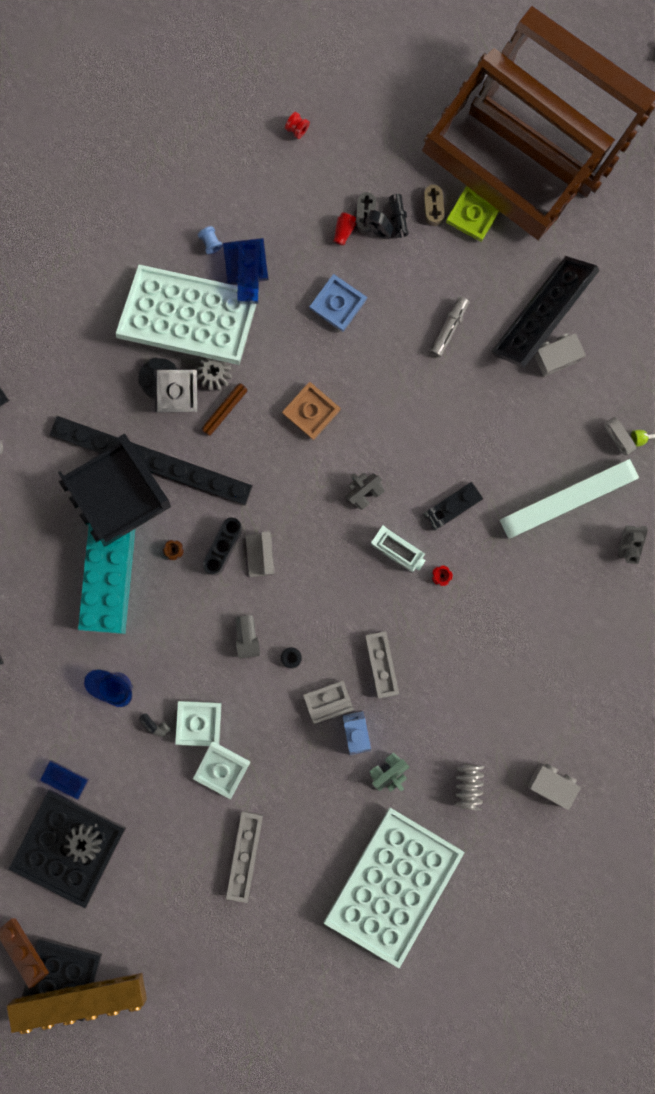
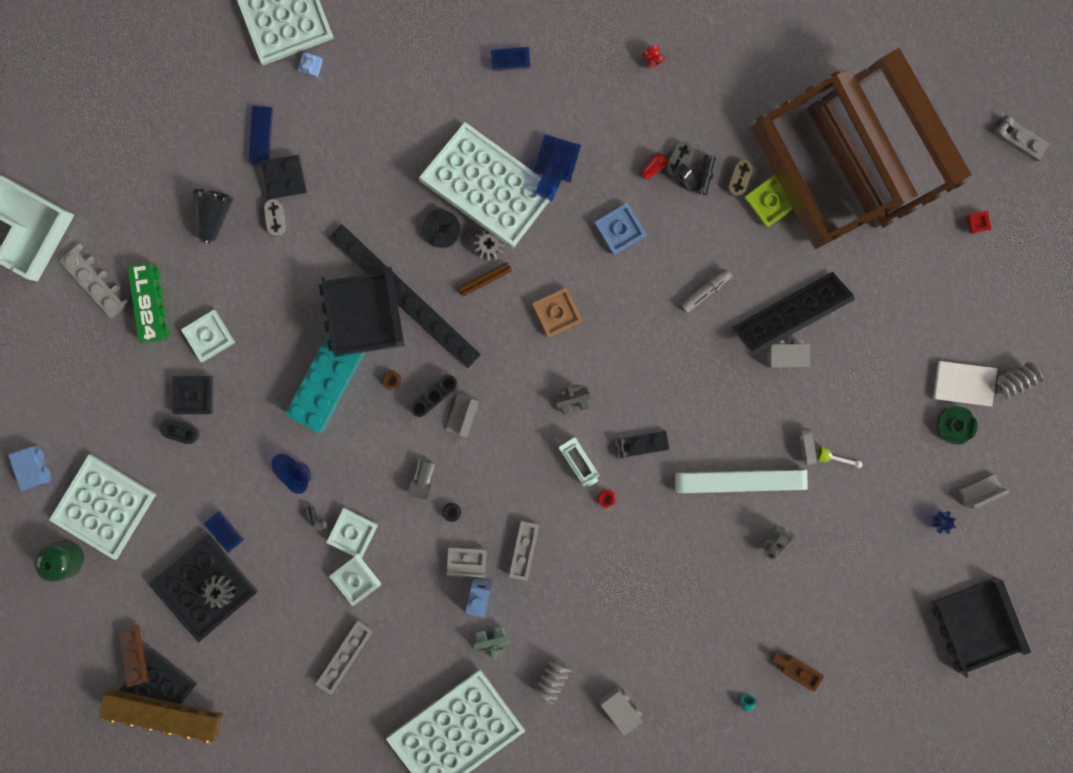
camera: 15 degrees right, 5 degrees up
(158, 185) = (510, 58): none -> clear blue plate
(175, 390) = (450, 246): plate -> none
(210, 240) = (535, 126): medium blue bush -> none

